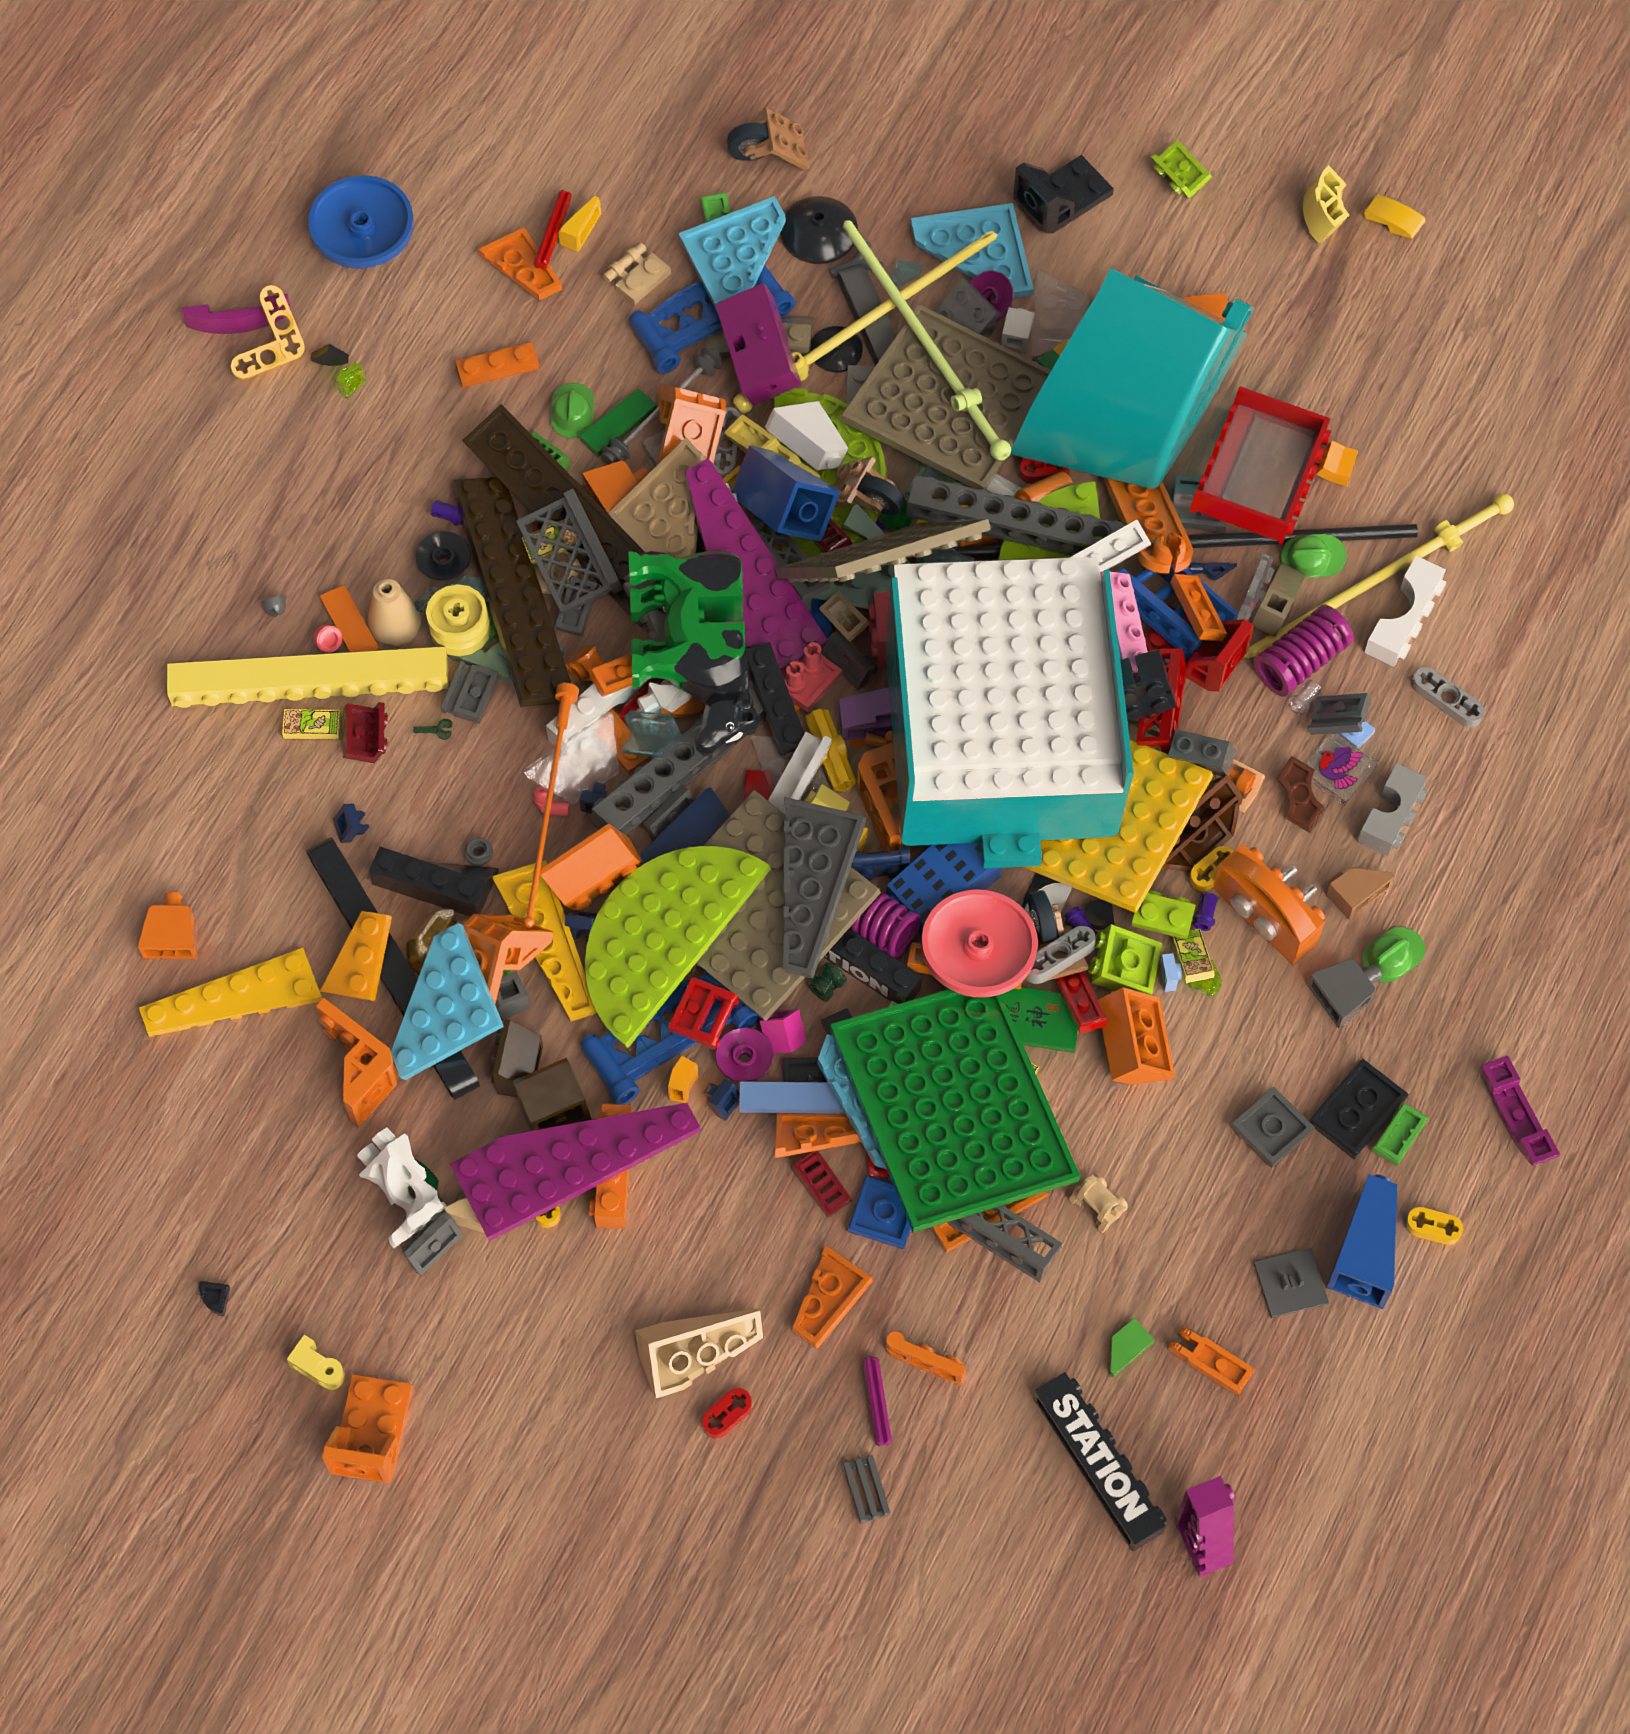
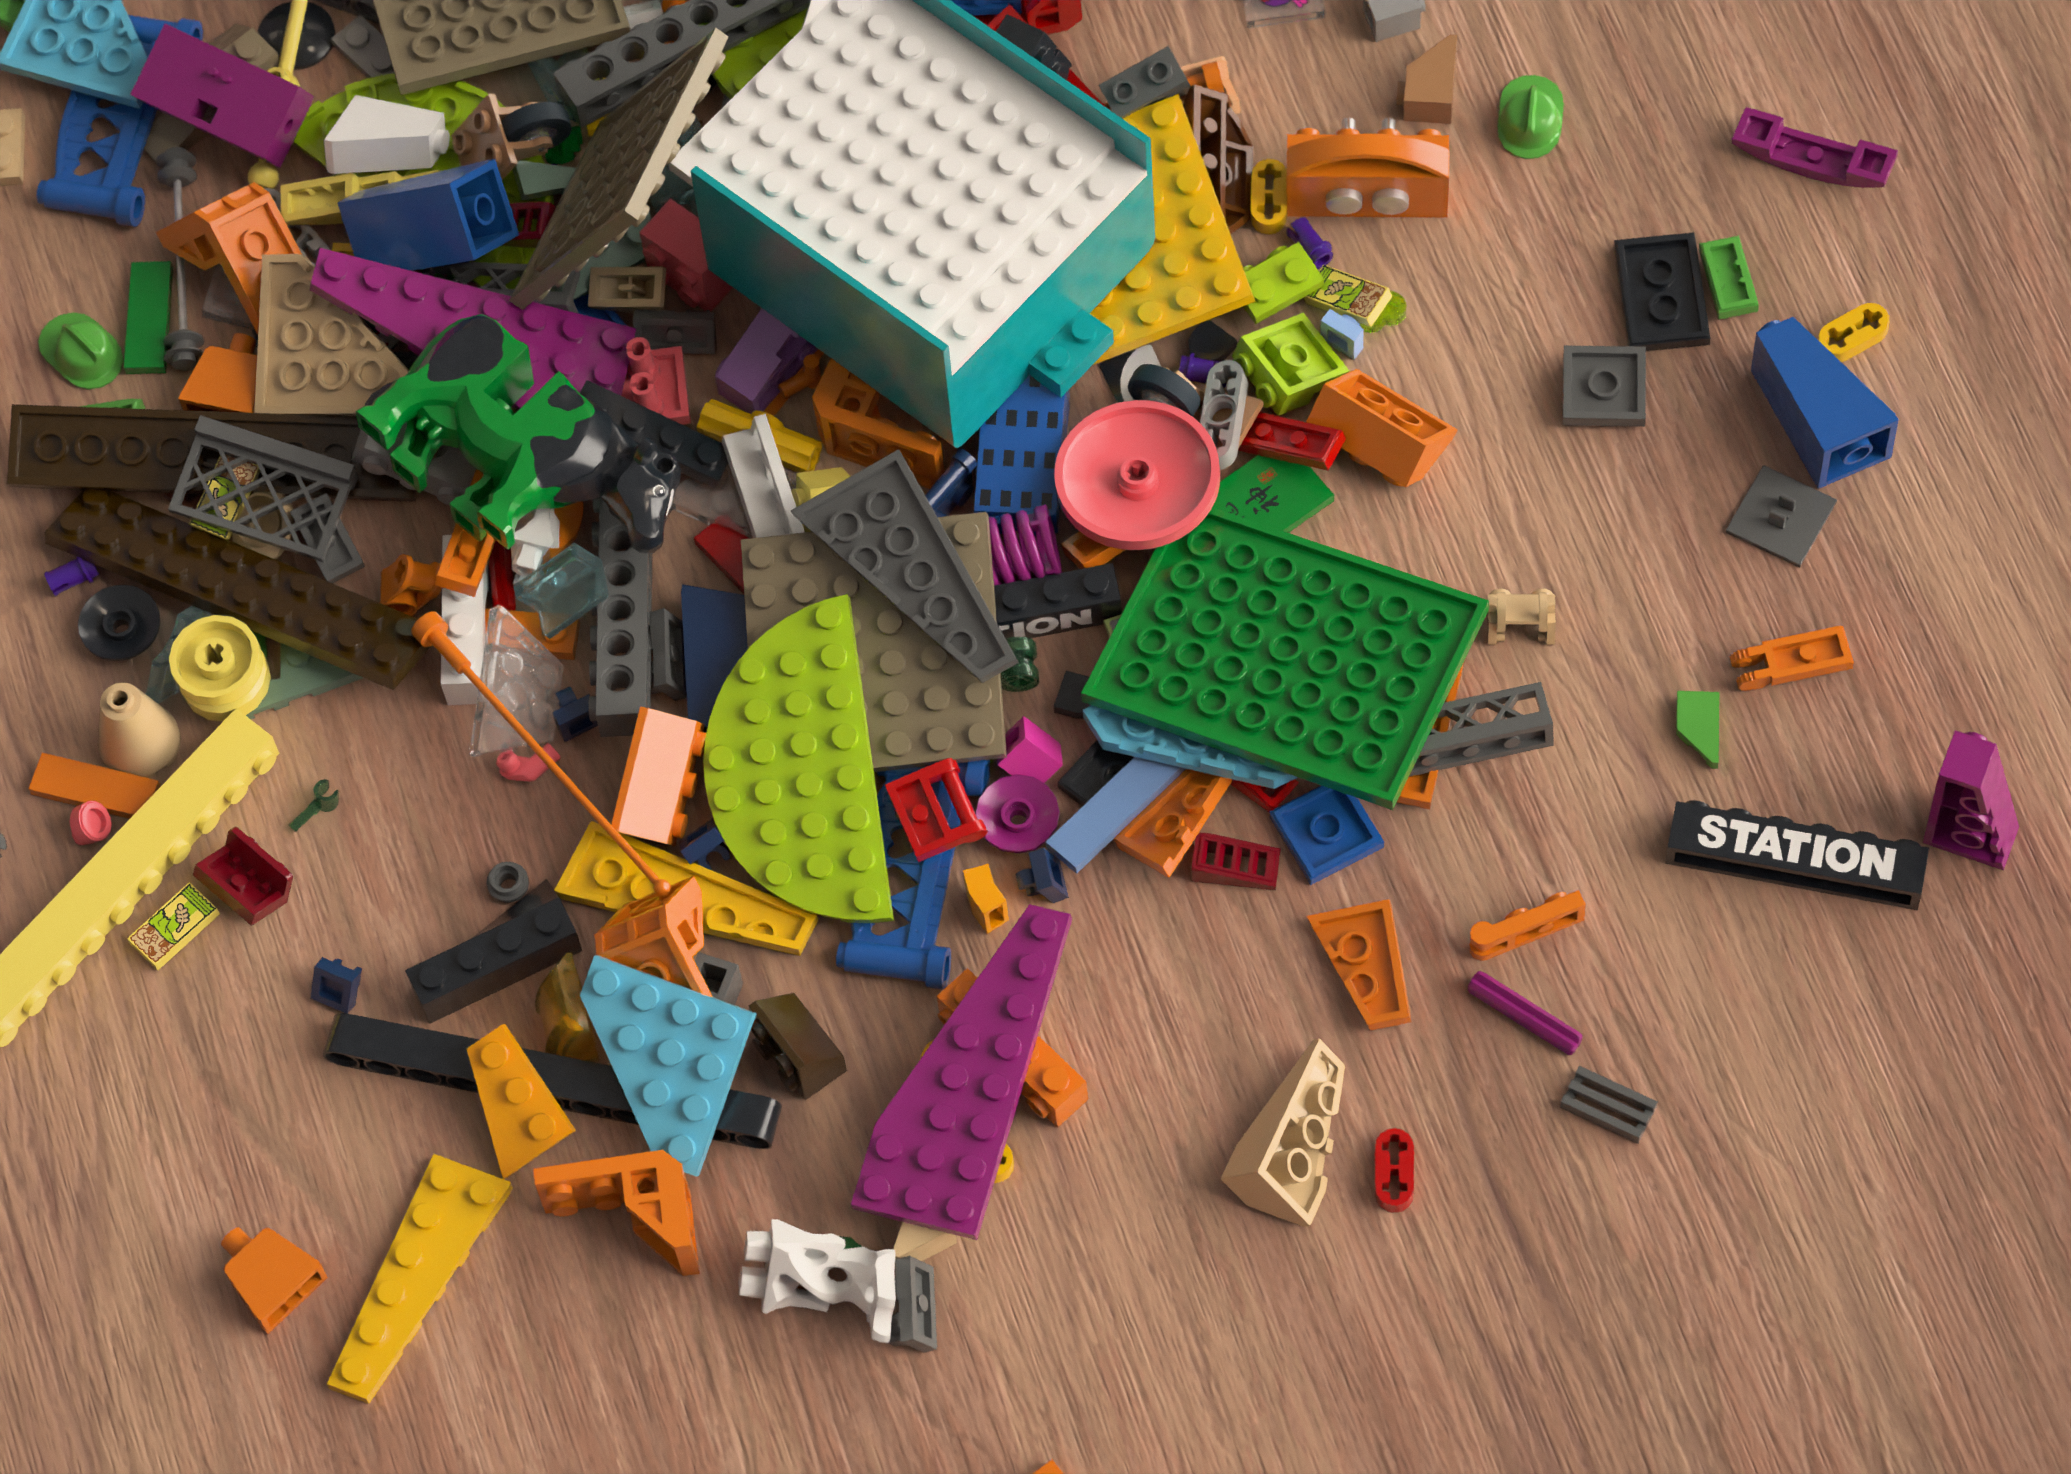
camera: 40 degrees left, 0 degrees up
(470, 692) = (311, 732): dark grey plate -> none
(551, 1097) = (878, 1041): dark brown slope -> none
(1297, 781) = (1289, 53): copper tile -> none
(1344, 989) = (1525, 191): dark grey torso -> none

